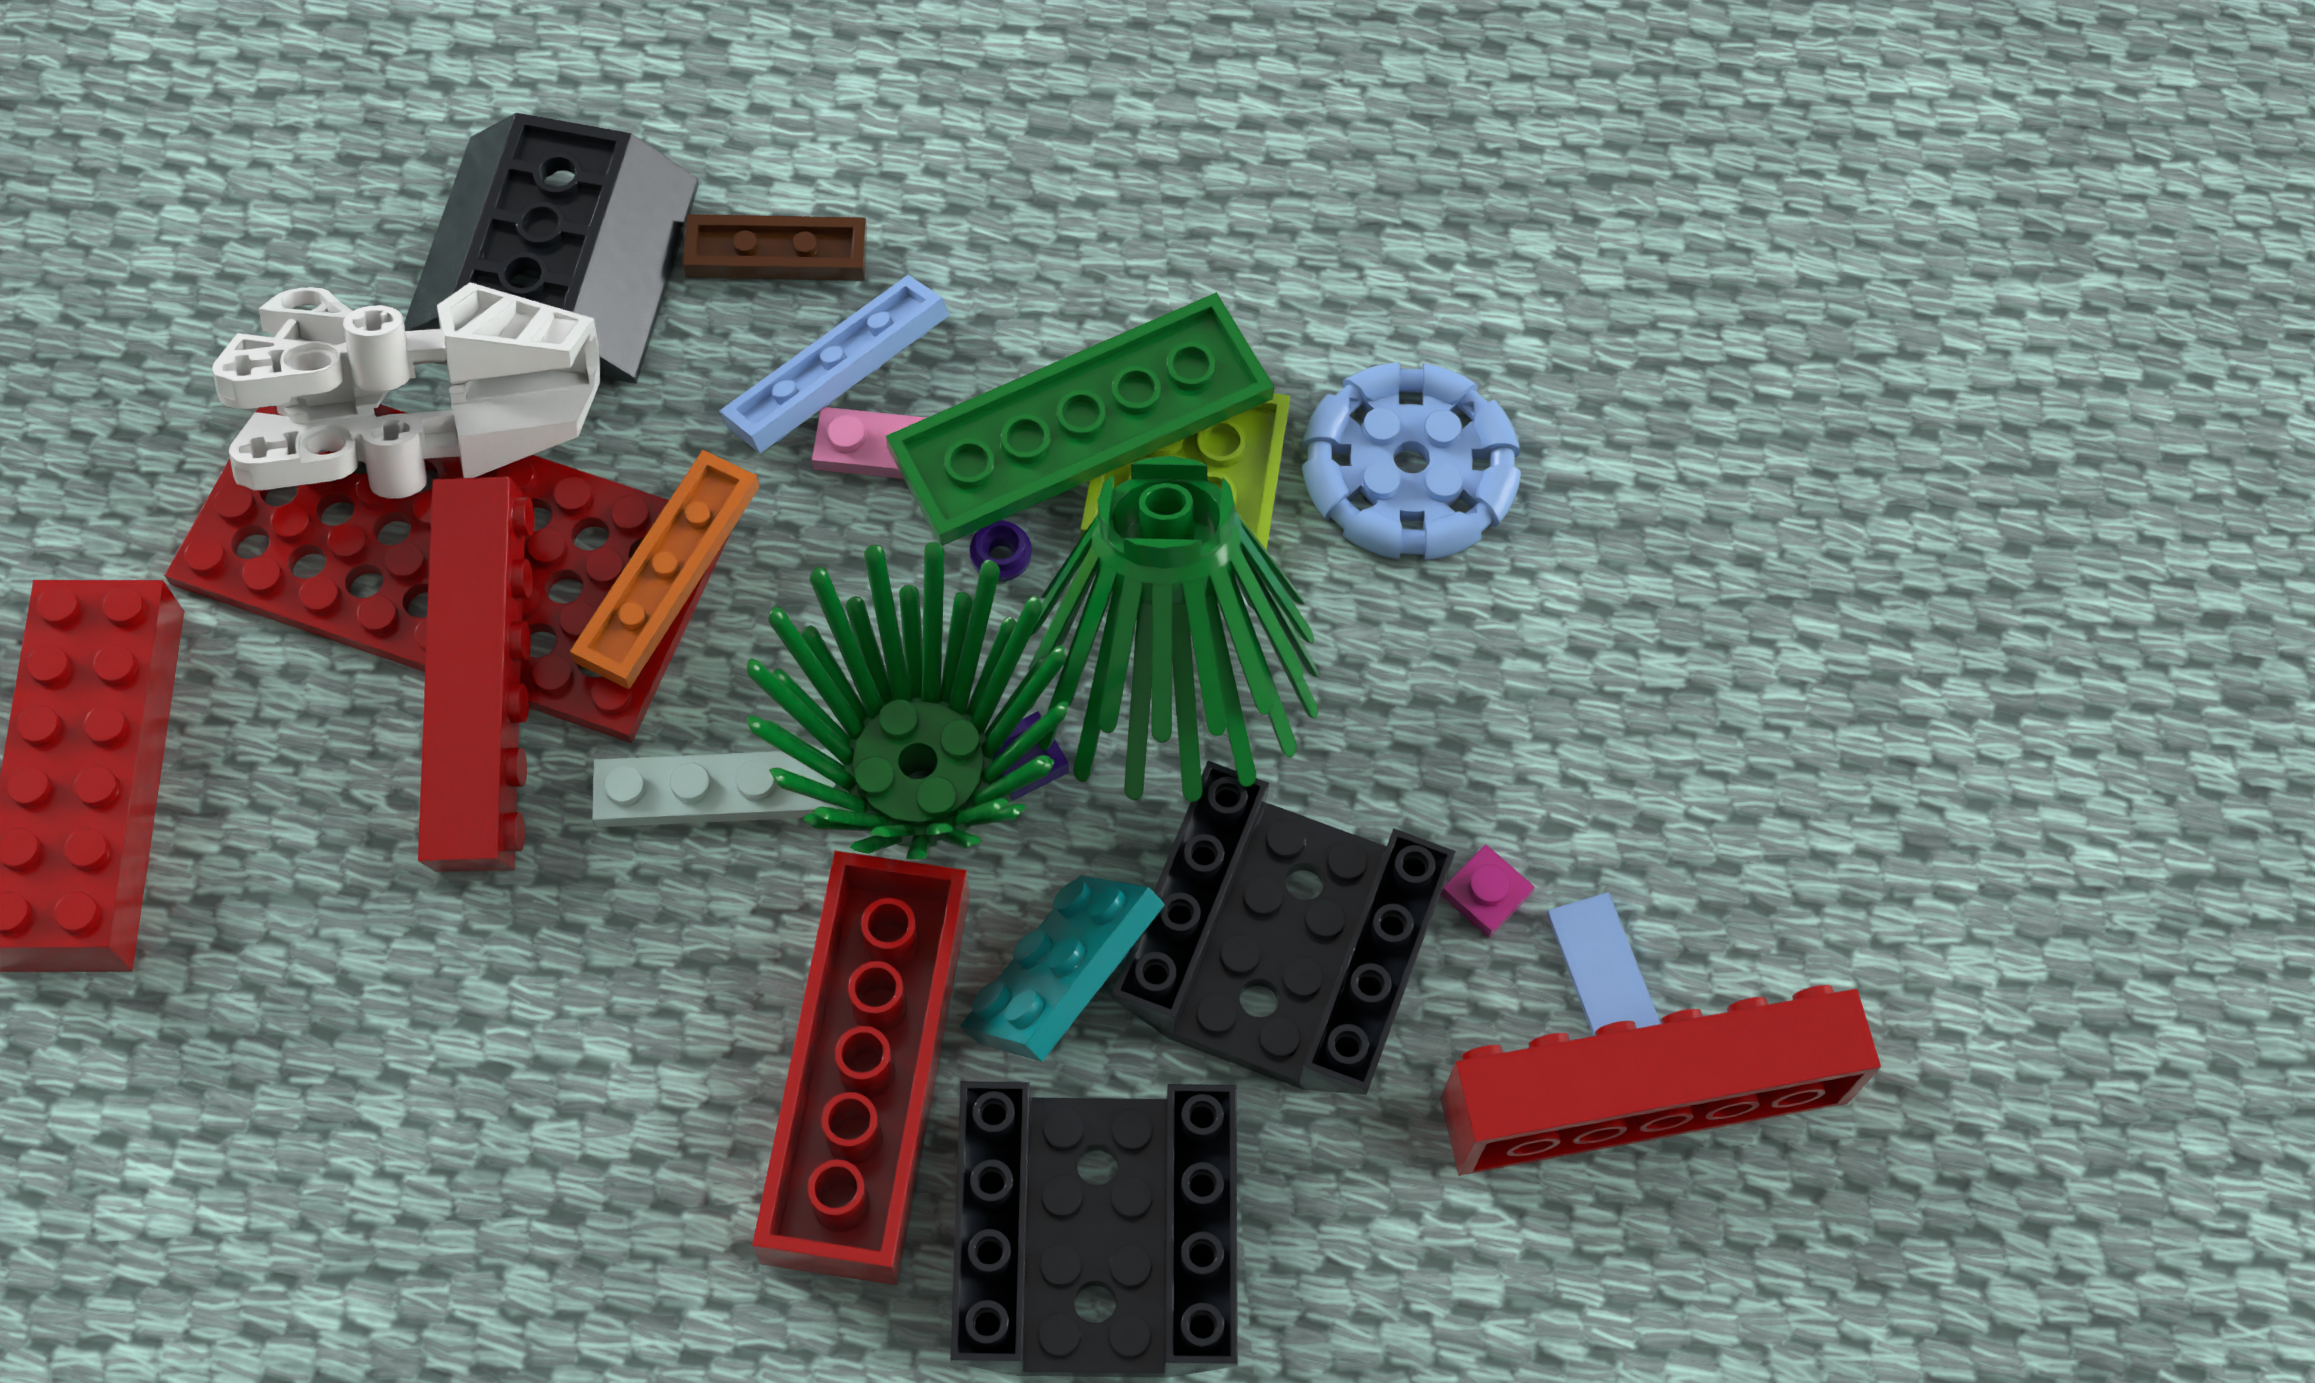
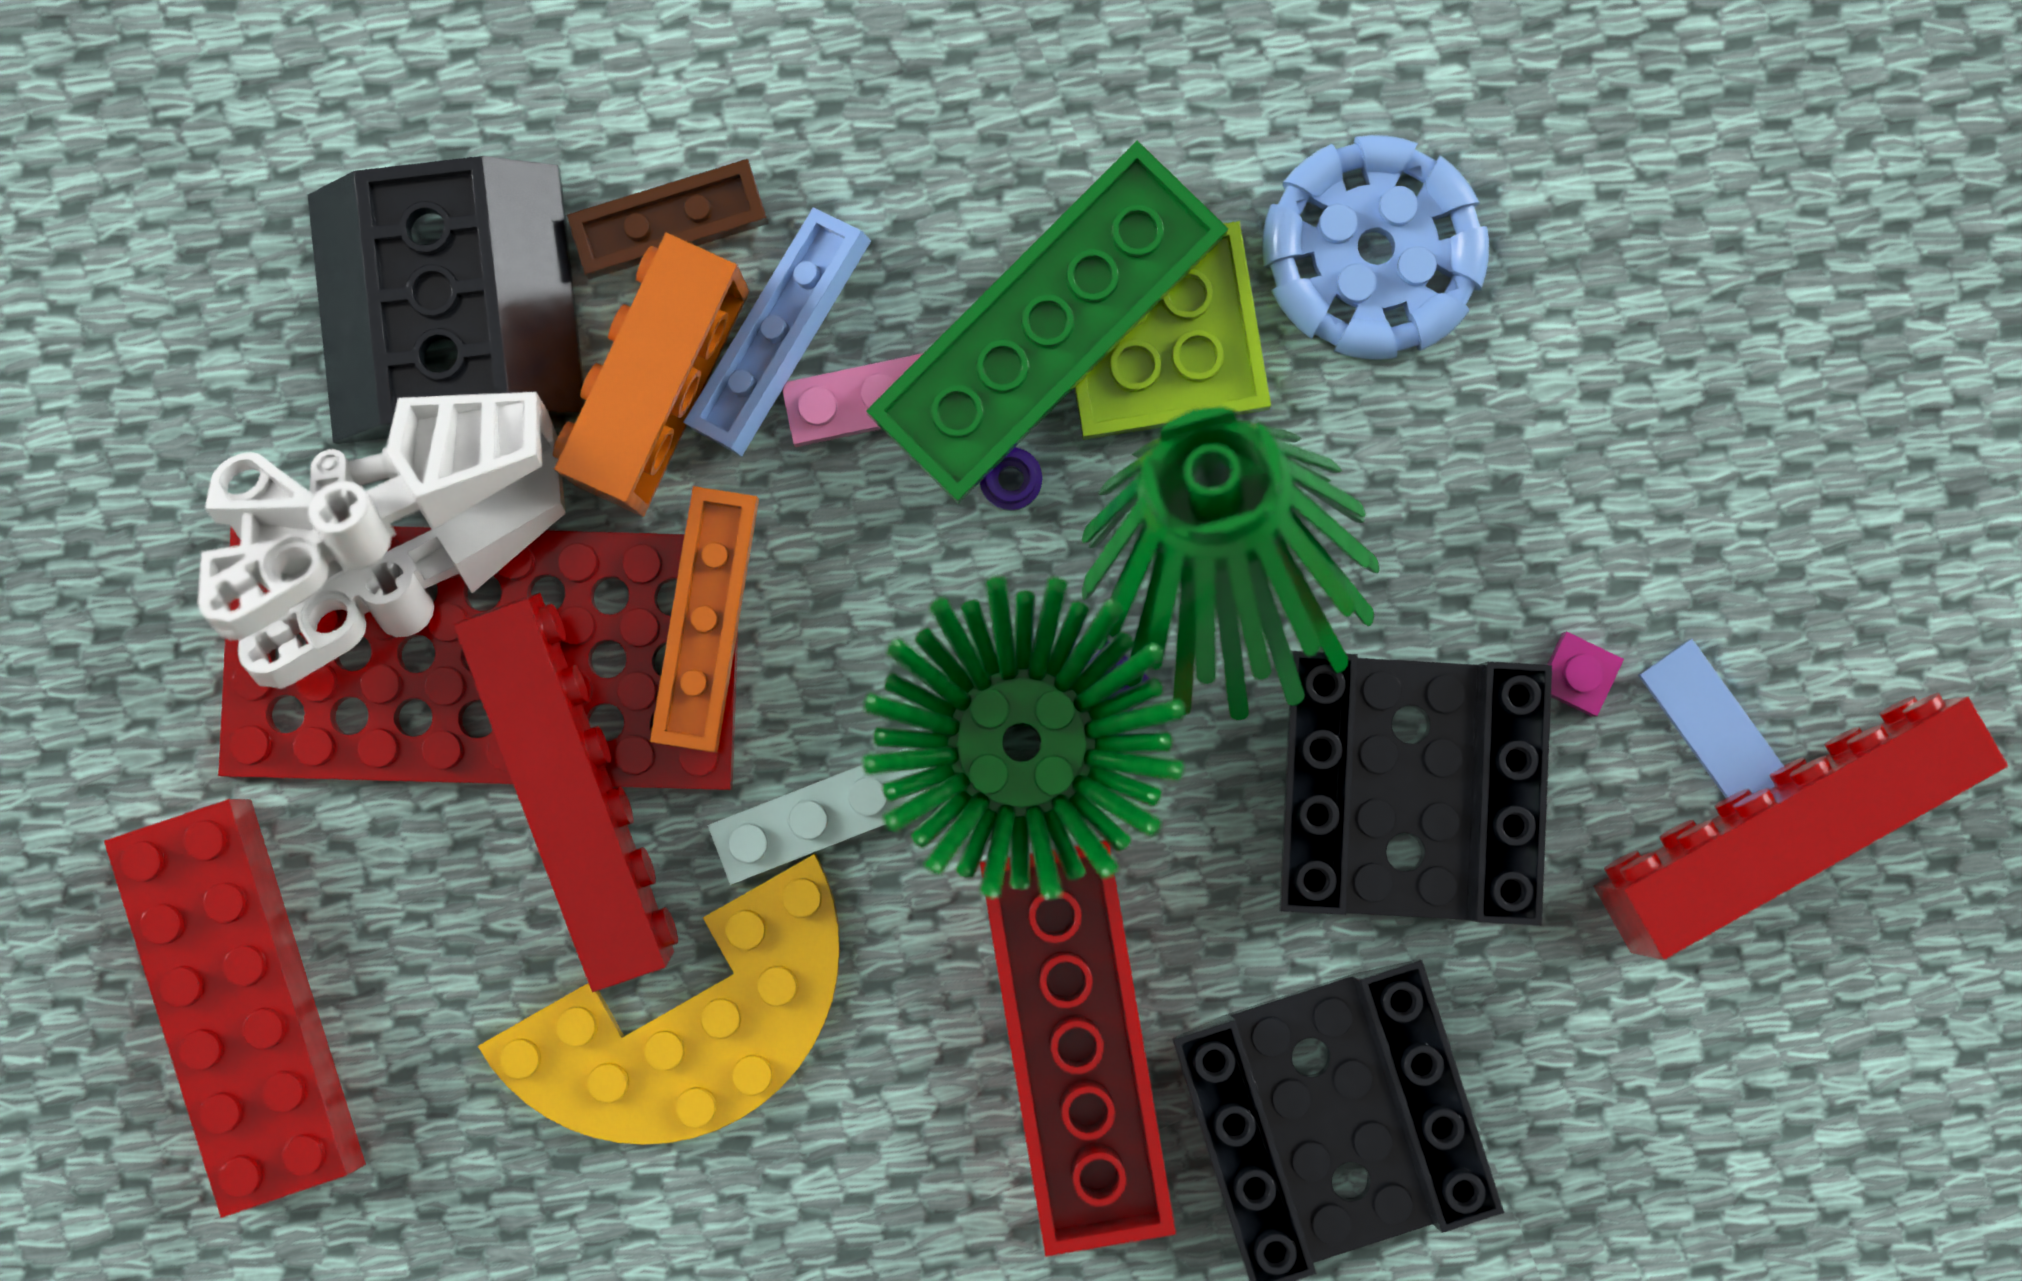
camera: 20 degrees left, 20 degrees up
(503, 972) = (704, 1057): none -> yellow plate
(704, 352) = (651, 374): none -> orange brick
(1061, 966) = (1223, 893): teal plate -> none

